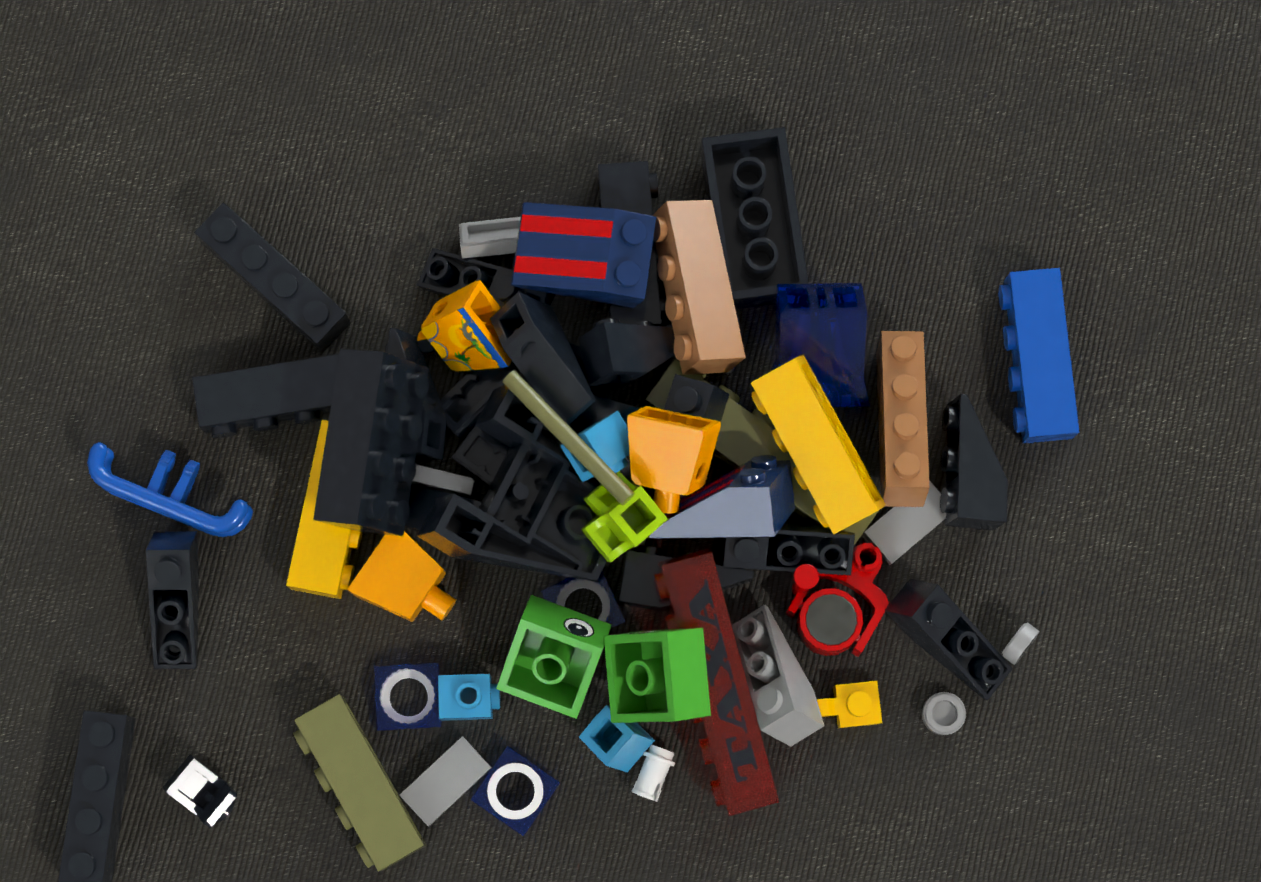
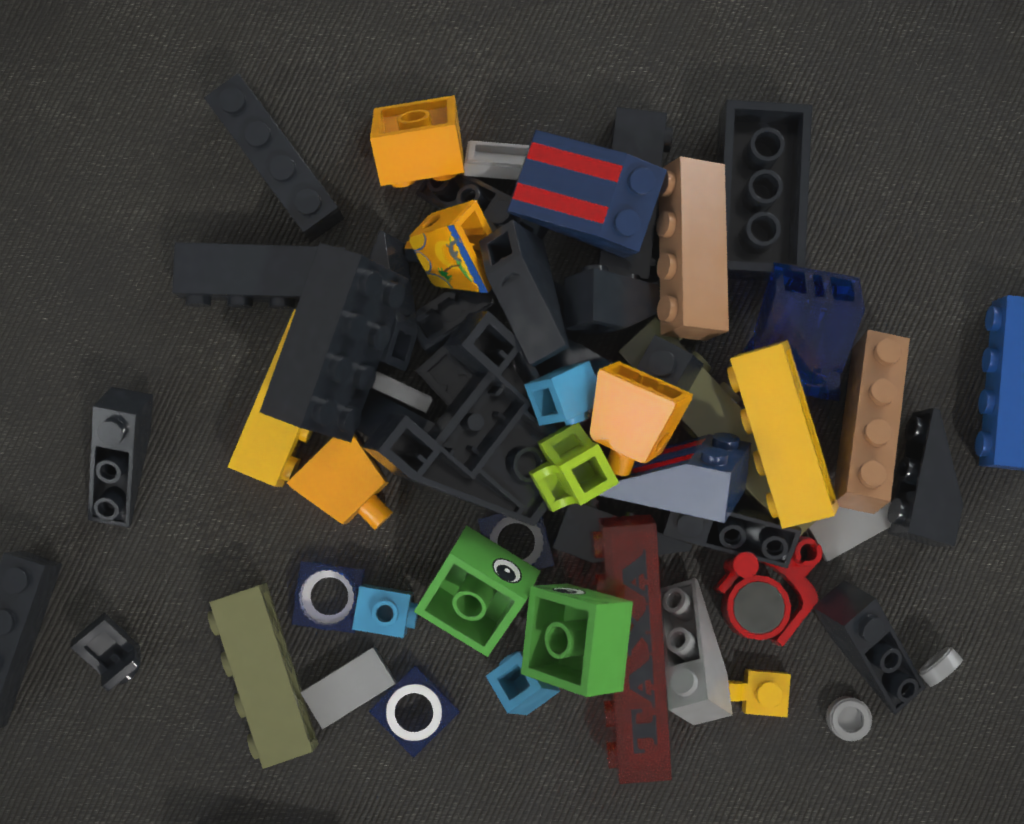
camera: 15 degrees right, 5 degrees up
(173, 507) = (70, 319): blue piece -> none
(410, 234) = (417, 141): none -> light orange slope
(568, 437) = (534, 380): olive bar -> none
(653, 772) = (552, 721): white pin -> none

